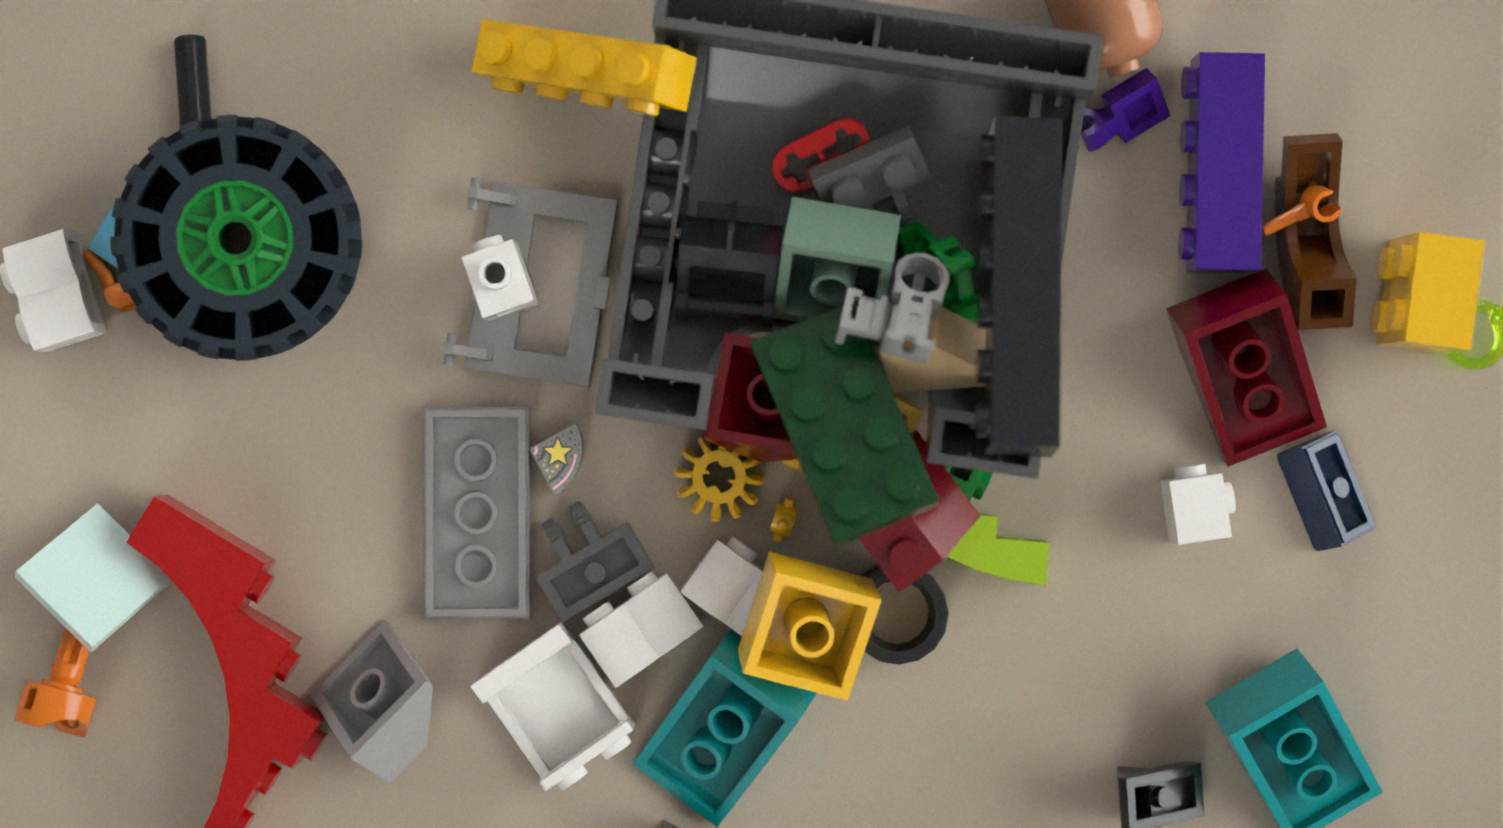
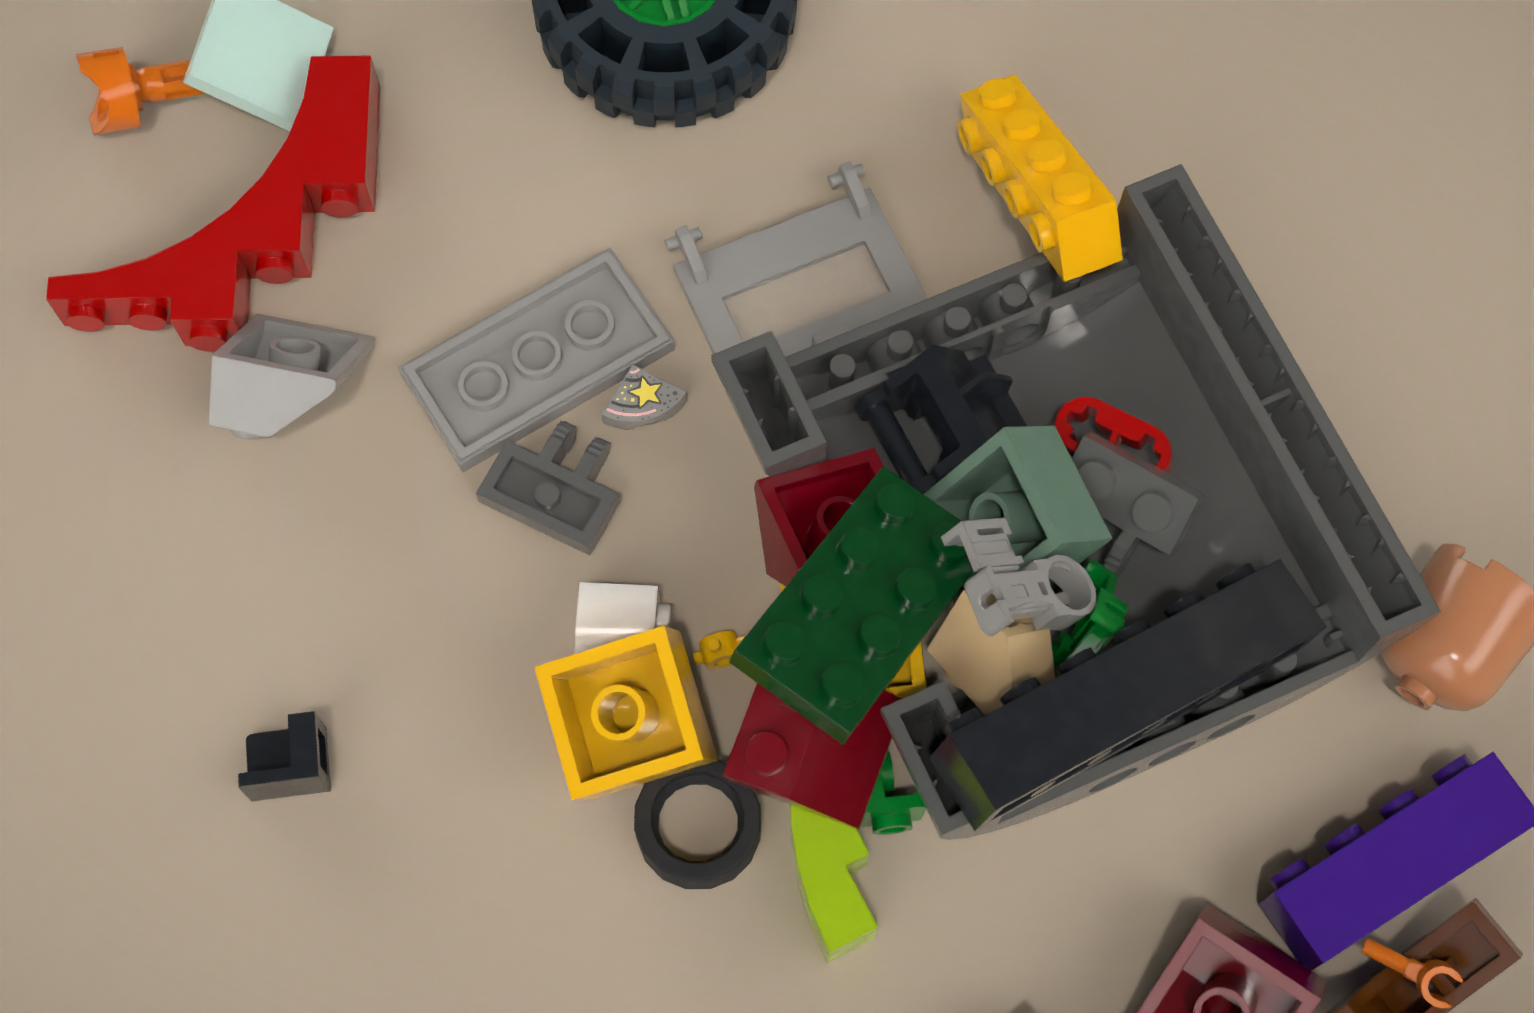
camera: 55 degrees right, 20 degrees down
(499, 277) = (781, 235): white brick -> none
(556, 707) = (386, 540): white panel -> none
(640, 628) = (516, 572): white brick -> none
(713, 493) = (715, 534): yellow gear -> none
(721, 733) = (458, 721): teal slope -> none
(1127, 112) = (1378, 732): dark purple plate -> none

